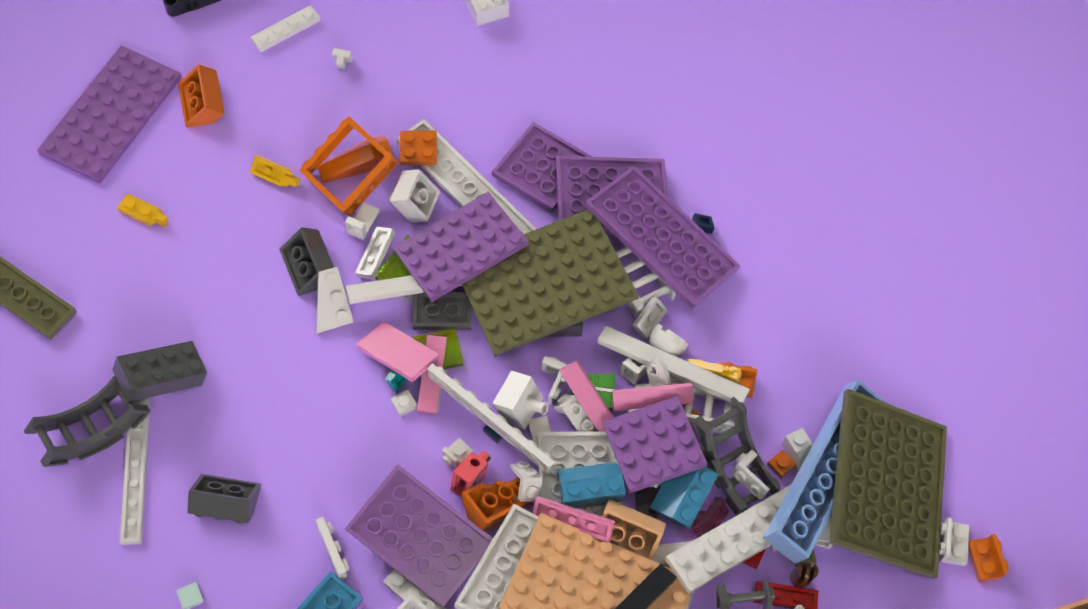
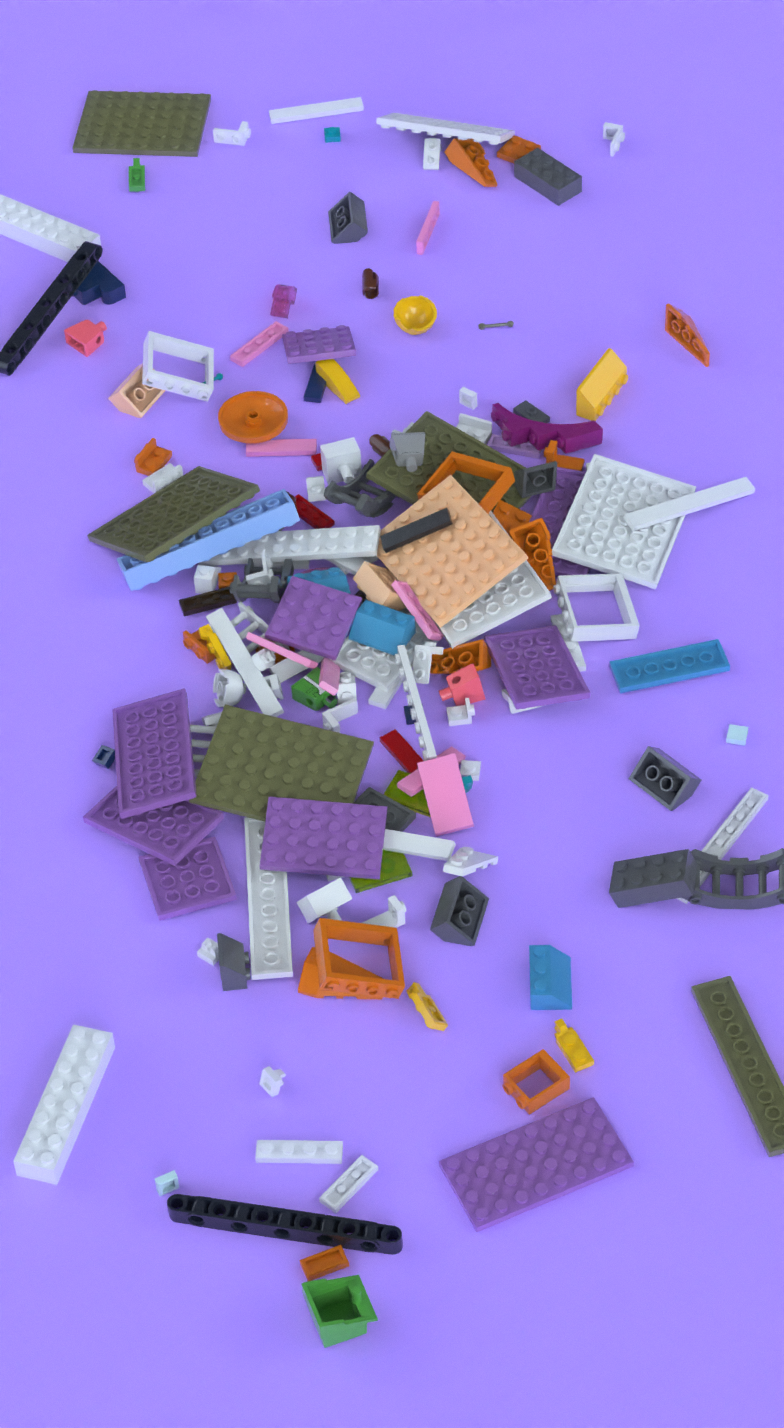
camera: 135 degrees left, 15 degrees down
(143, 179) = (550, 1067): none -> orange window
(195, 250) = (549, 978): none -> dark azure slope
(201, 97) = (439, 1120): orange slope -> none
(234, 28) = (348, 1184): none -> white tile
(333, 548) = (607, 702): white plate -> none
(375, 253) = (398, 886): white plate -> none
(418, 148) = (281, 947): orange plate -> none
(443, 114) = (232, 963): none -> dark grey slope
(472, 125) = (209, 951): none -> white tile
(478, 384) = (401, 750): none -> red tile
(519, 400) = (383, 705): white brick -> none
(777, 431) = (206, 601): none -> dark brown tile

